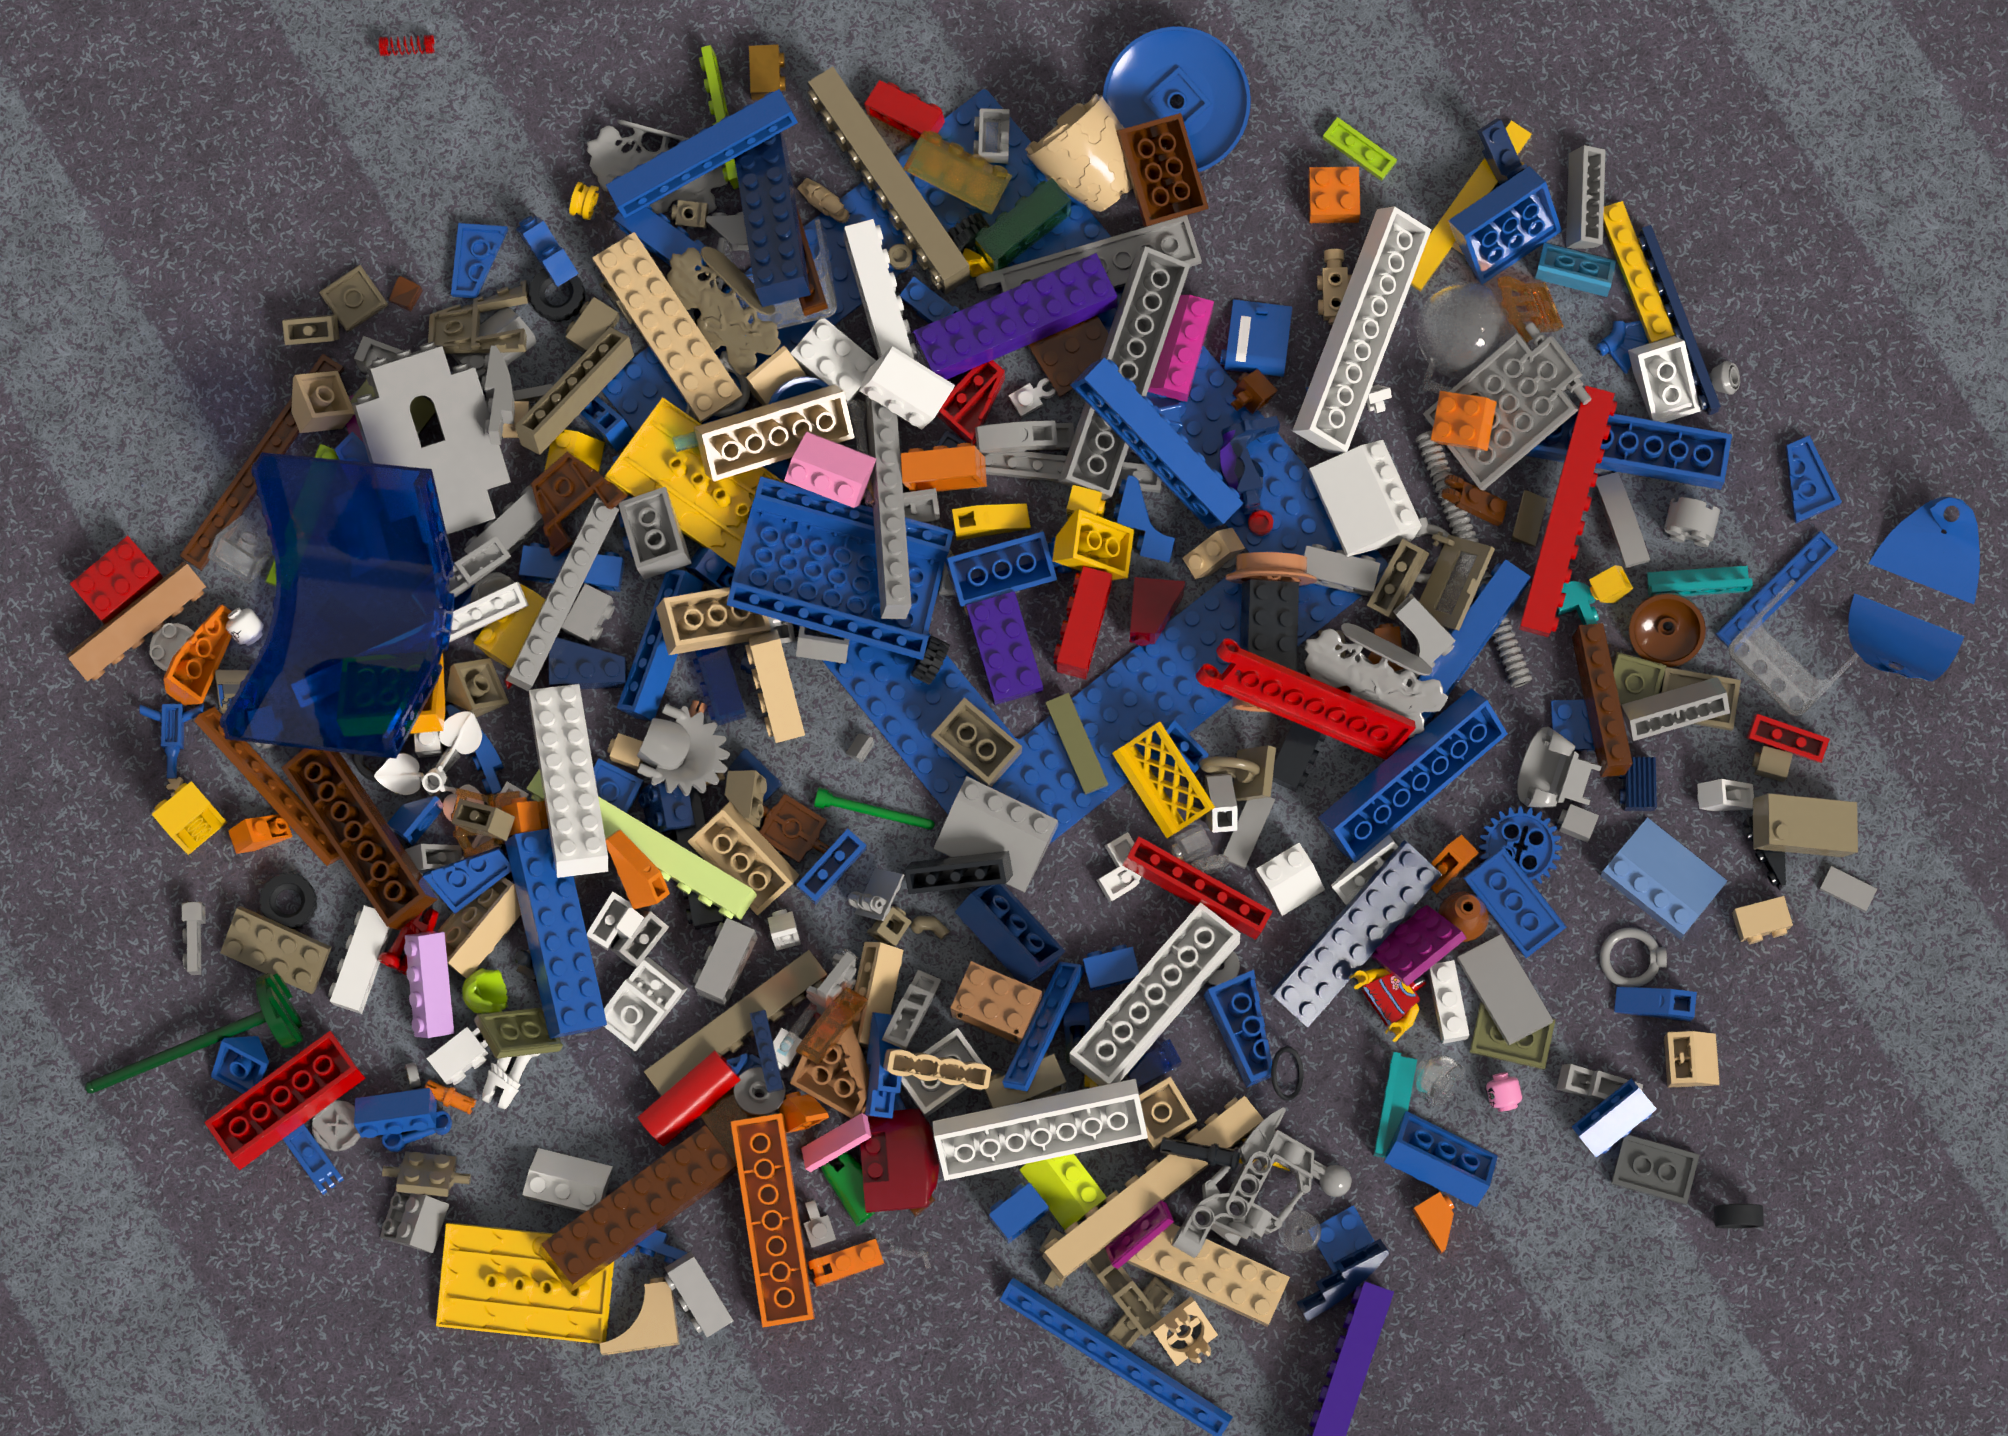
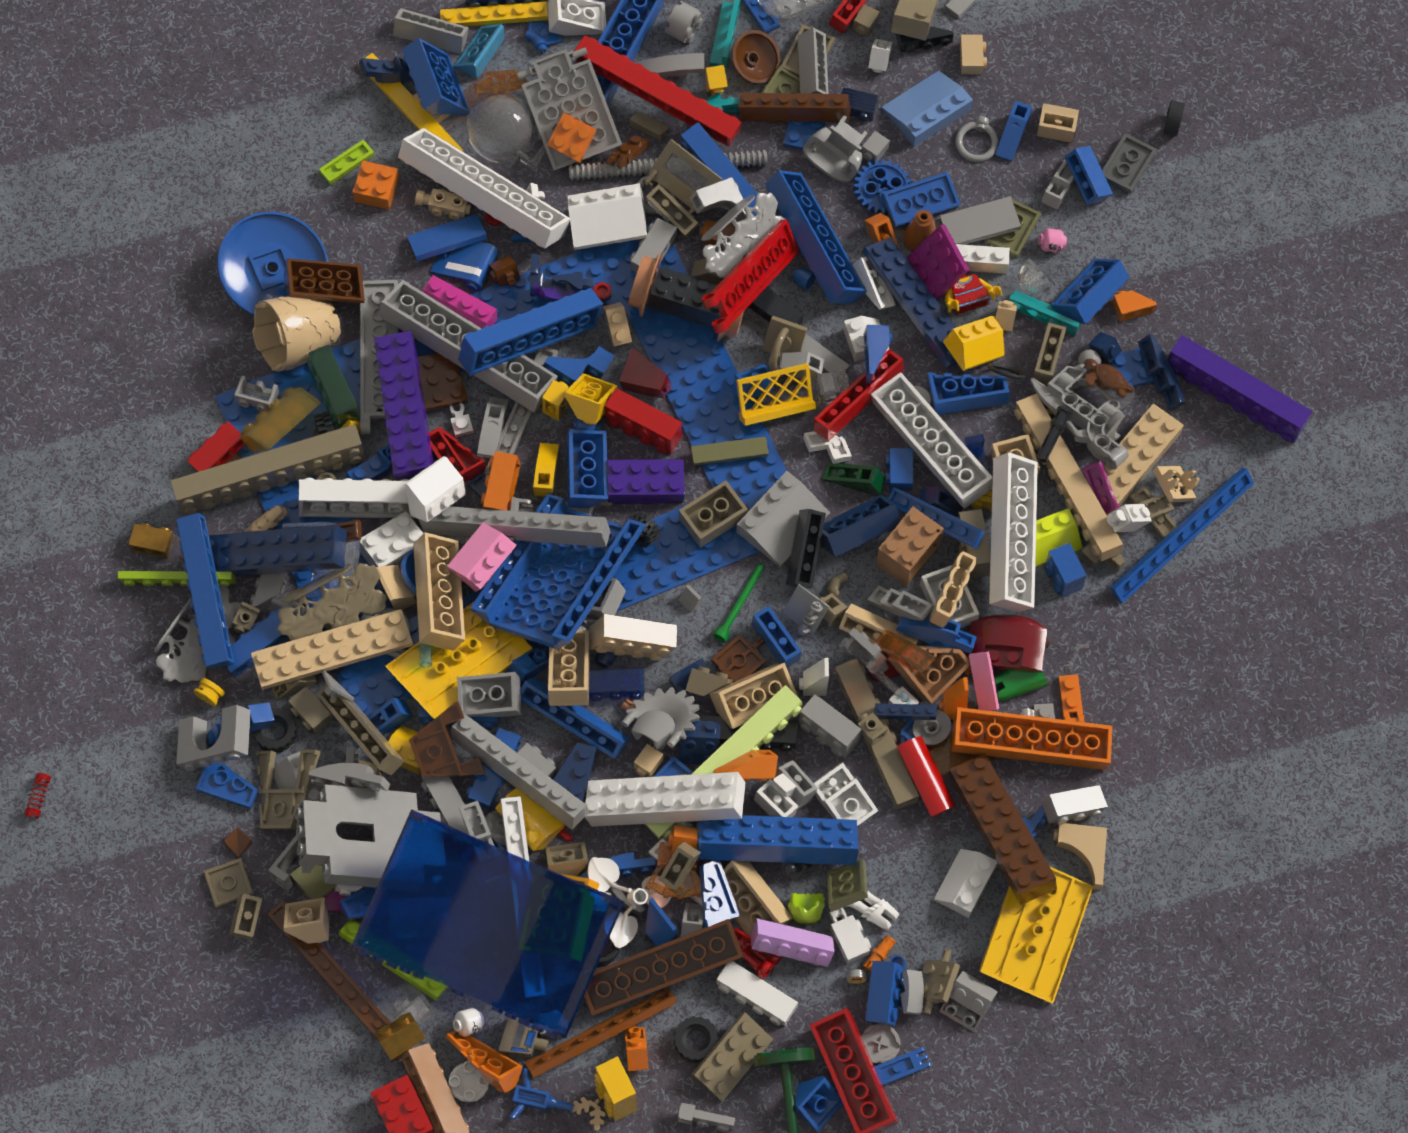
camera: 80 degrees left, 10 degrees down
(201, 549) = (400, 1035): none -> pearl gold brick
(402, 1148) = (913, 996): none -> light grey slope
(516, 243) = (231, 744): none -> light grey arch
(615, 345) = (334, 688): none -> light grey piece
(732, 1023) = (873, 734): none -> dark tan brick
(1083, 912) = (856, 477): none -> dark green slope
(1104, 1275) = (1129, 518): none -> white brick
(1264, 891) = (875, 346): none -> blue slope
(1283, 305) = (447, 237): none -> blue tile
(1307, 1206) = (1106, 377): none -> reddish brown animal
(1314, 1024) = (976, 343): none -> yellow slope
(1329, 1124) = (1049, 353): none -> dark tan brick
(1353, 775) = (804, 278): none -> blue hat
(1360, 1196) = (1105, 346): none -> dark blue brick
(1369, 1054) = (1006, 314): none -> tan brick

